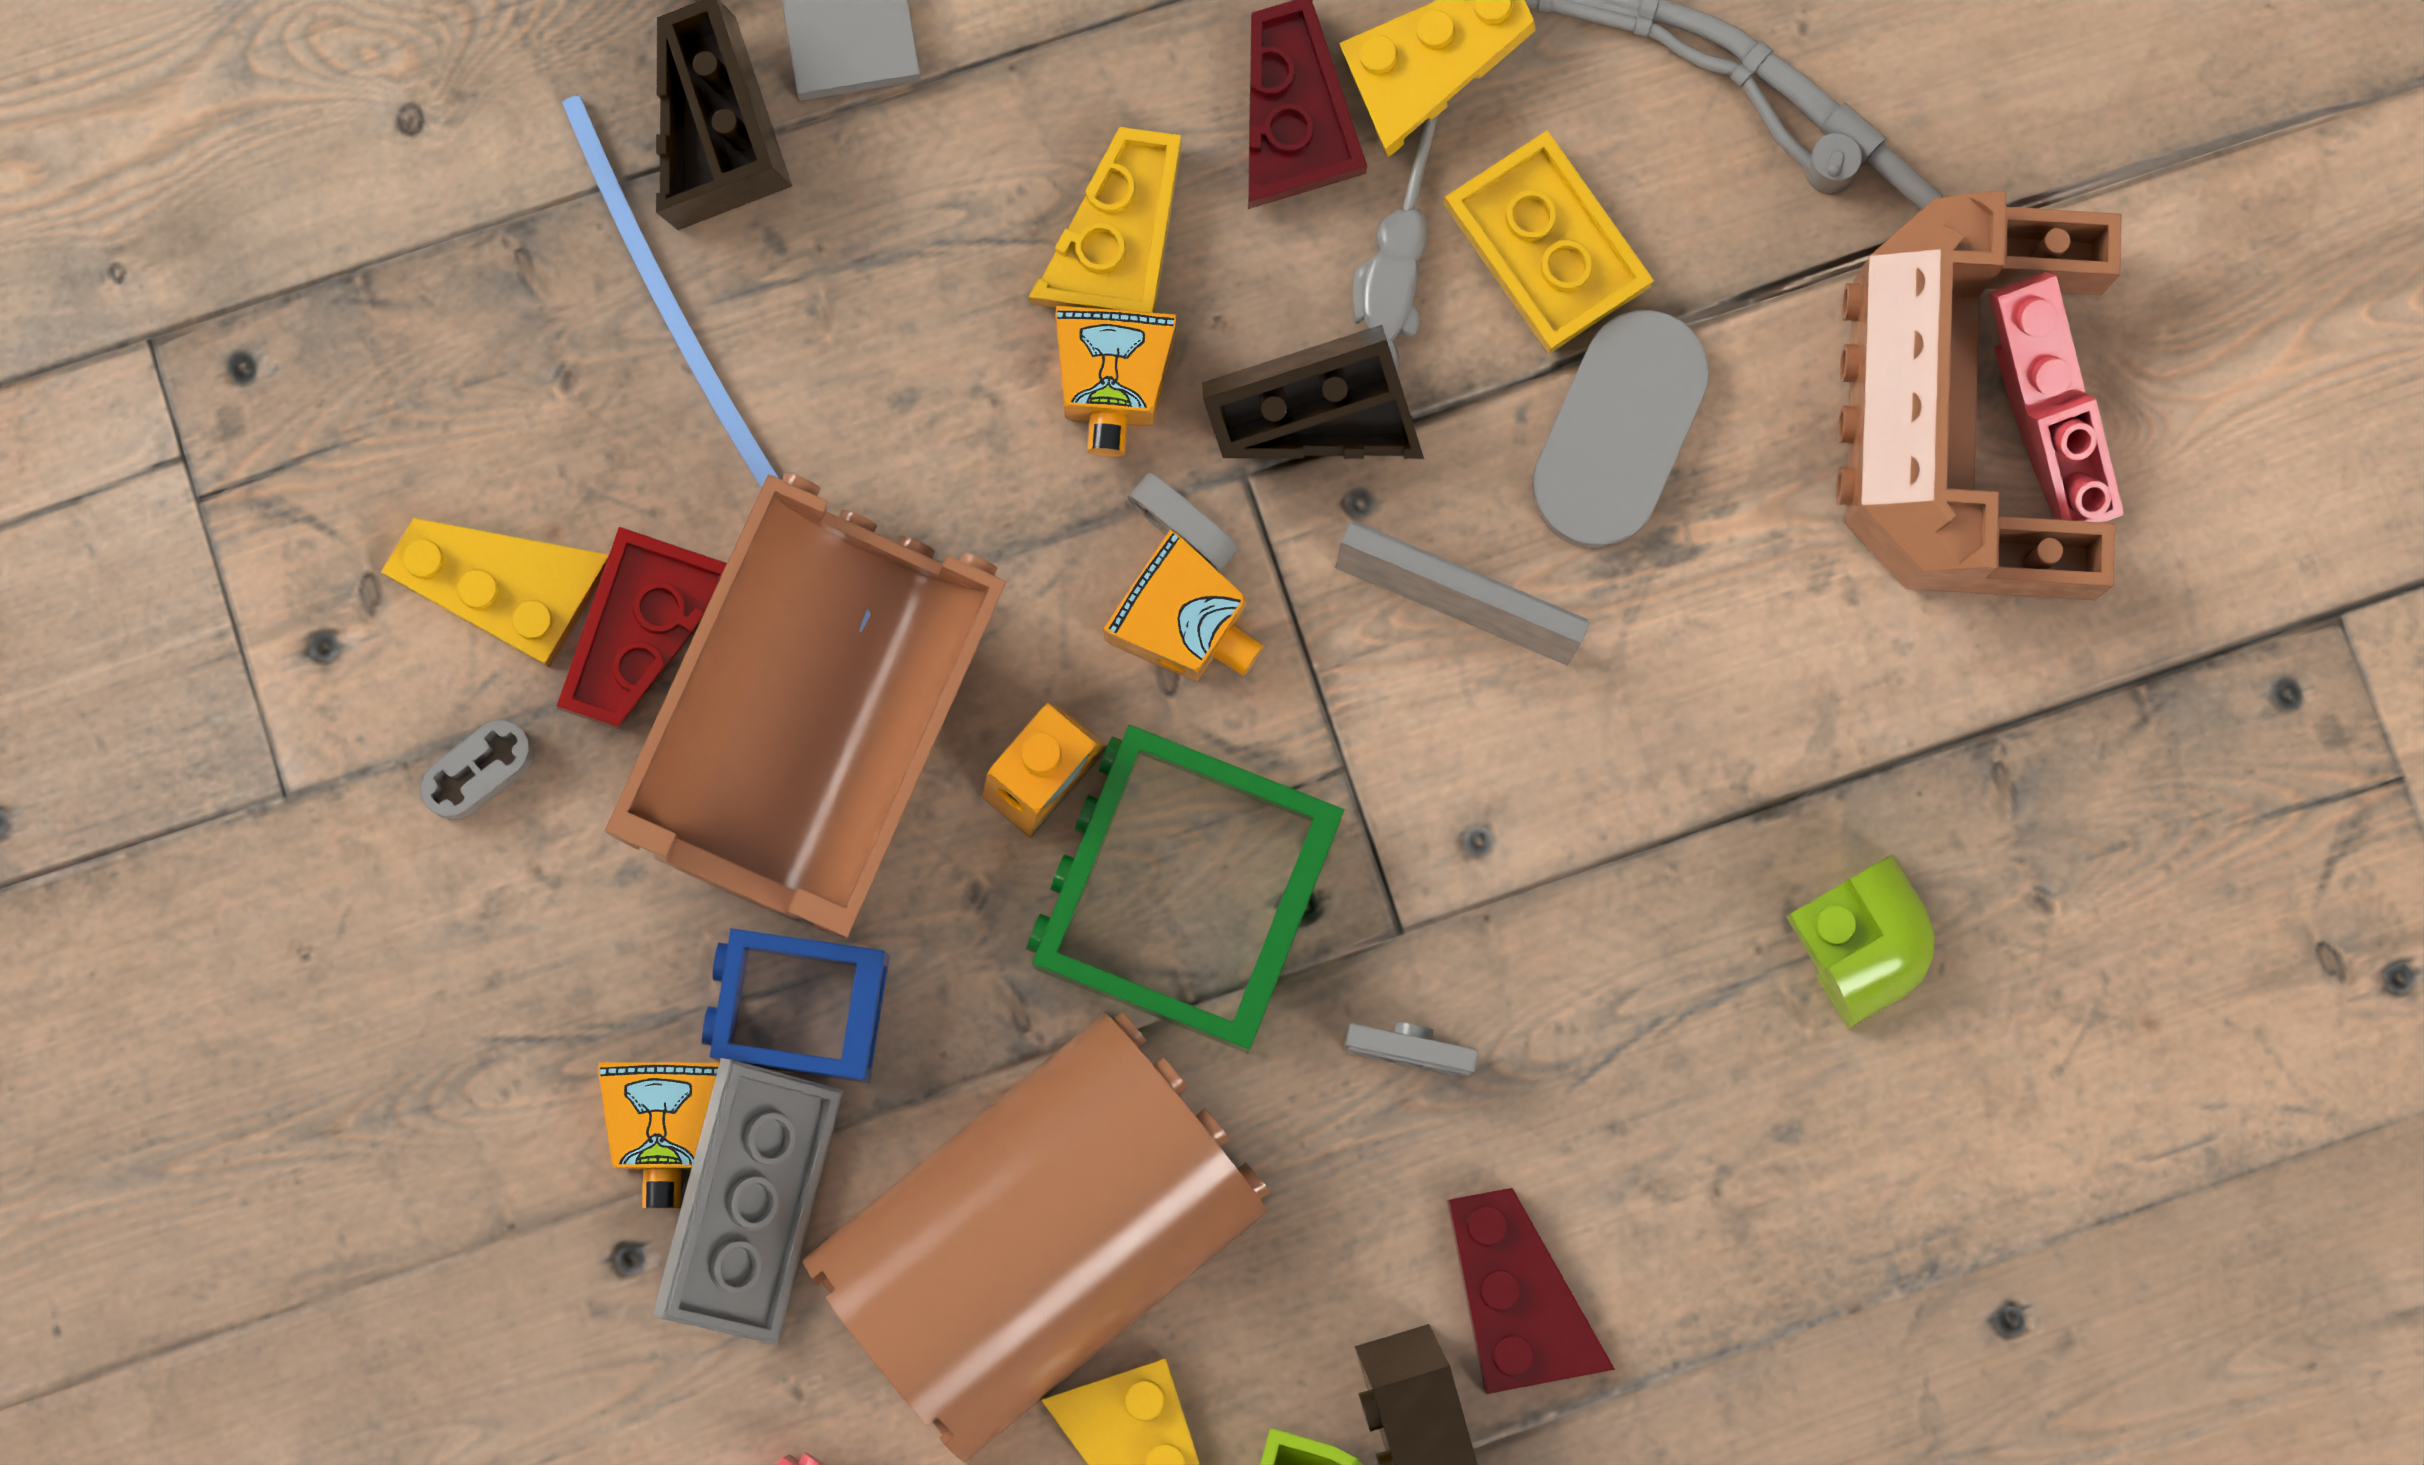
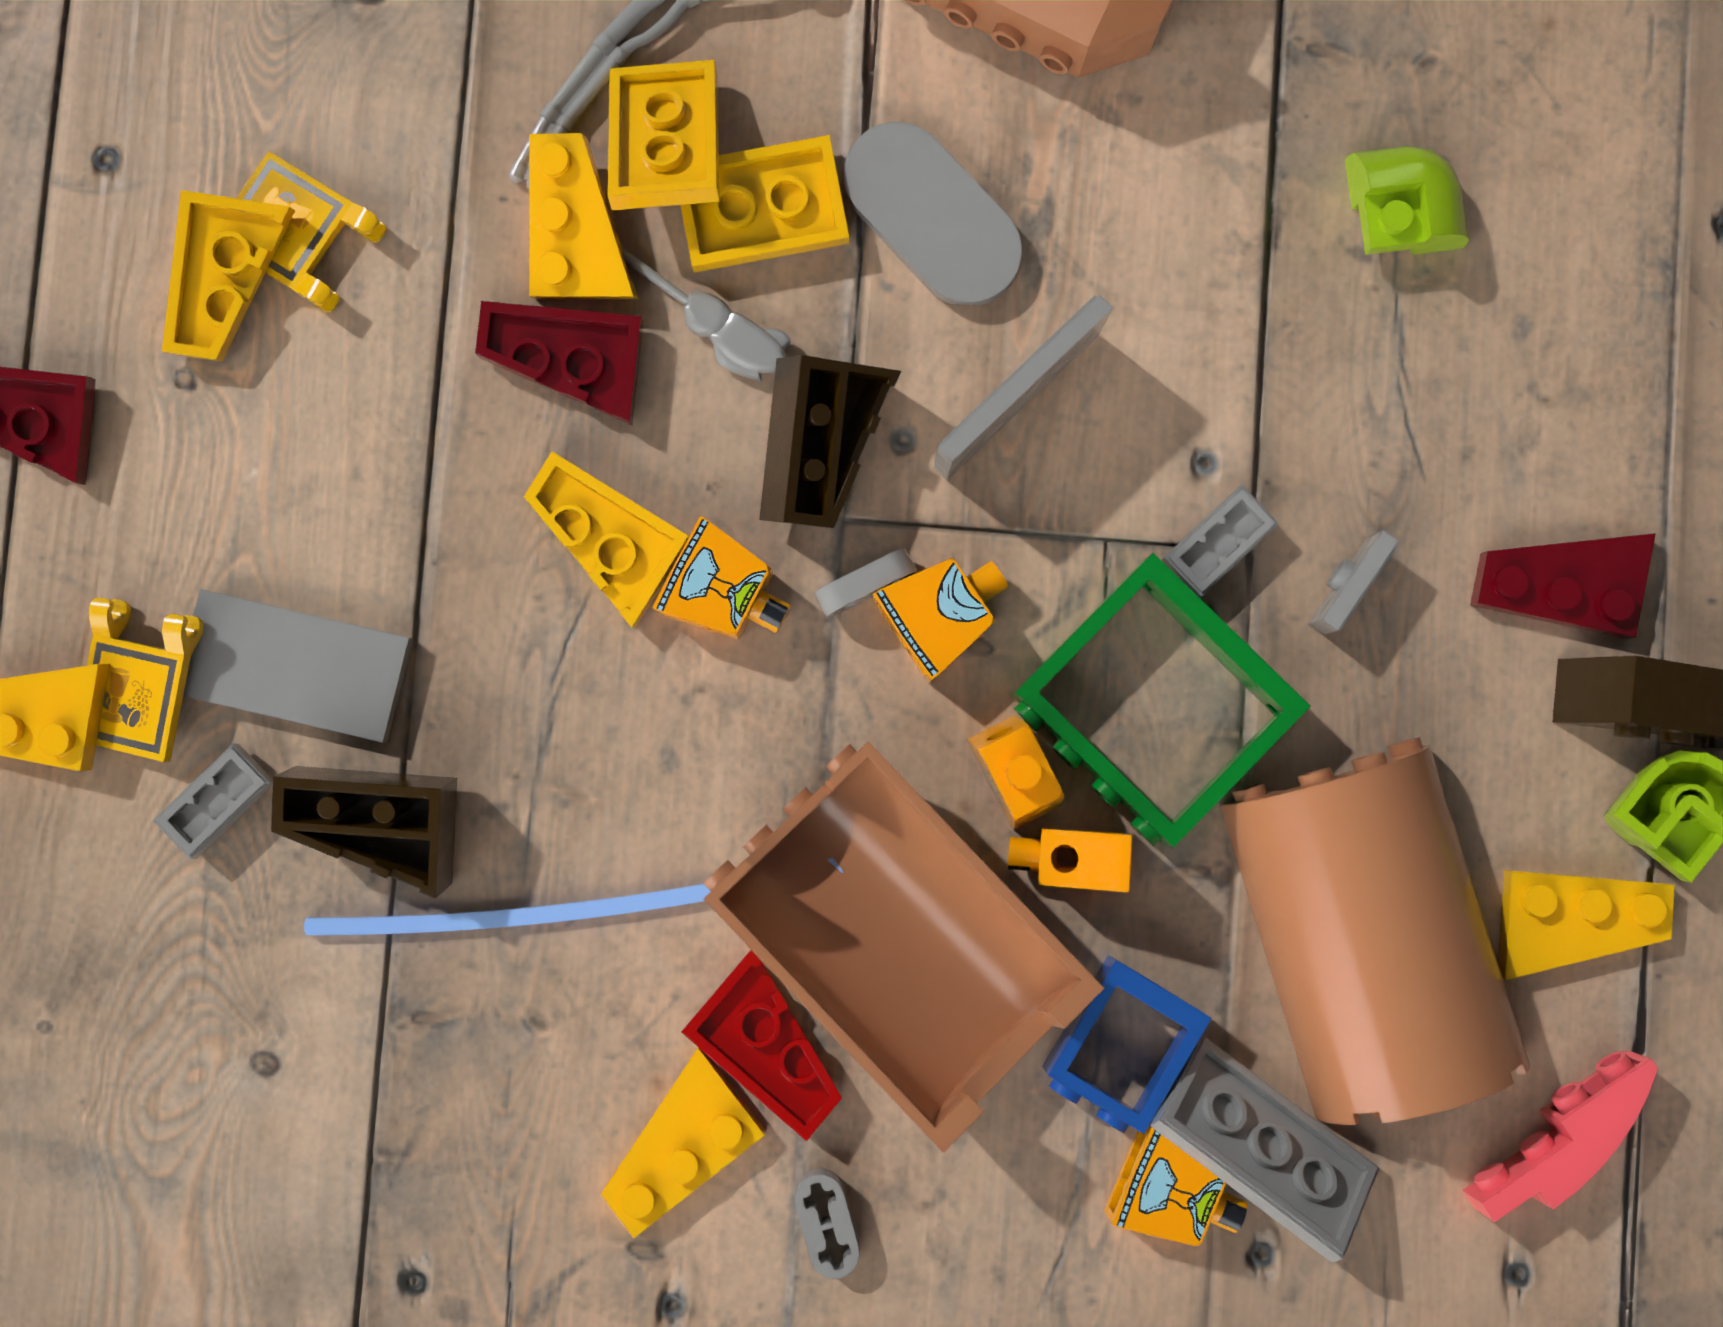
camera: 65 degrees left, 5 degrees up
(981, 884) = (1101, 865): none -> light orange torso
(1394, 886) = (1220, 541): none -> light grey plate
(1572, 106) = (663, 135): none -> yellow plate

